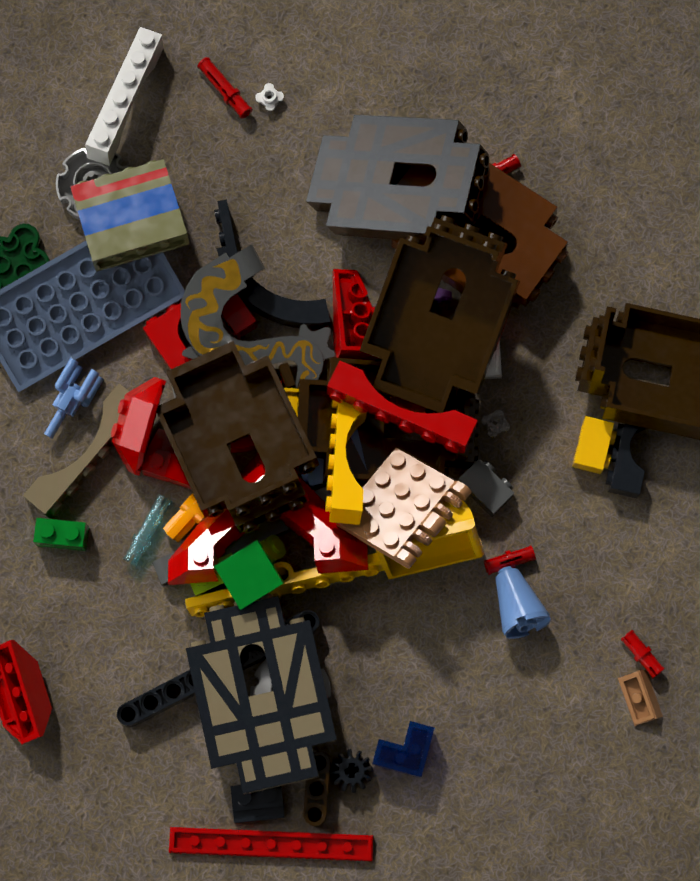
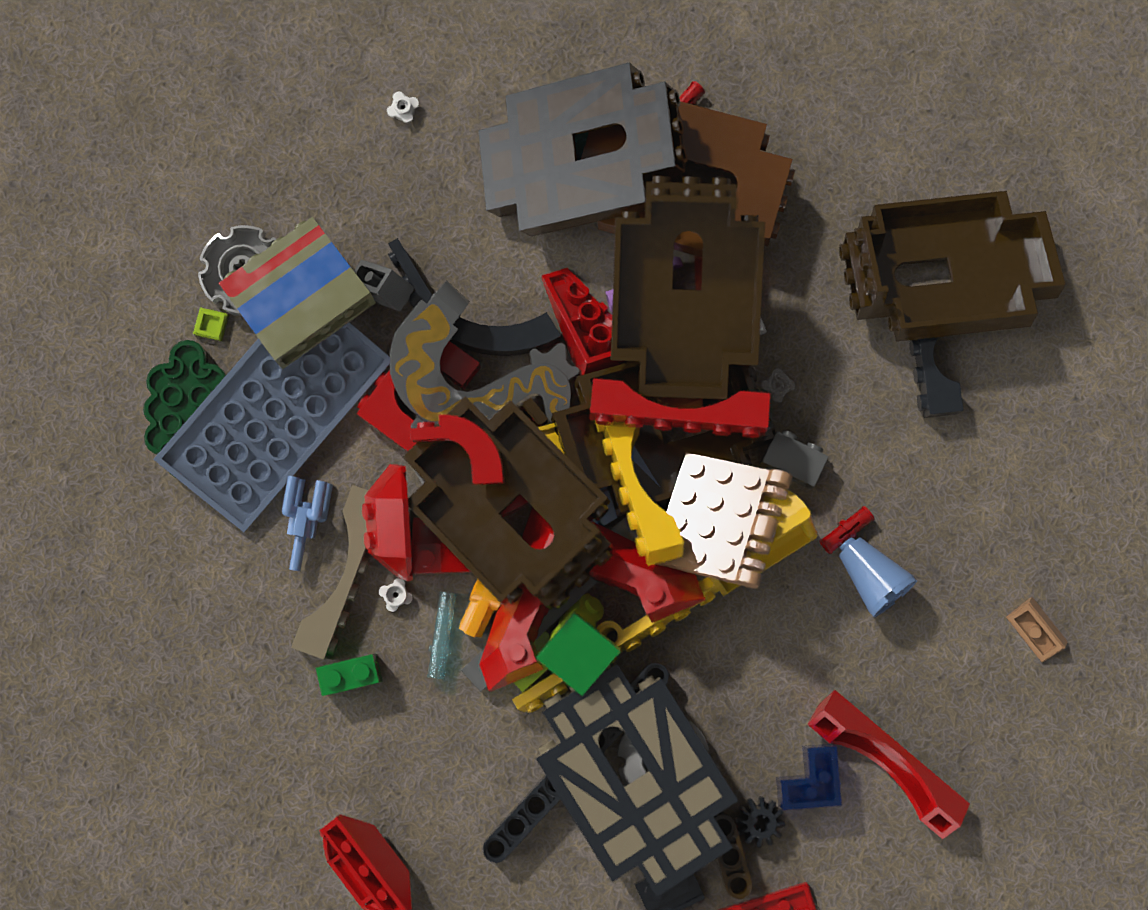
camera: 25 degrees left, 5 degrees up
(52, 218) = (210, 324): none -> lime tile
(111, 121) = (237, 192): white arch -> none
(115, 481) = (403, 596): none -> white plate
(201, 233) = (384, 284): none -> dark grey brick
(230, 94) = (358, 118): red pin -> none
(230, 387) = (483, 453): none -> red arch
(500, 802) = (931, 797): none -> red arch
(593, 445) = (893, 373): yellow brick -> none
(642, 654) = (1024, 582): red pin -> none

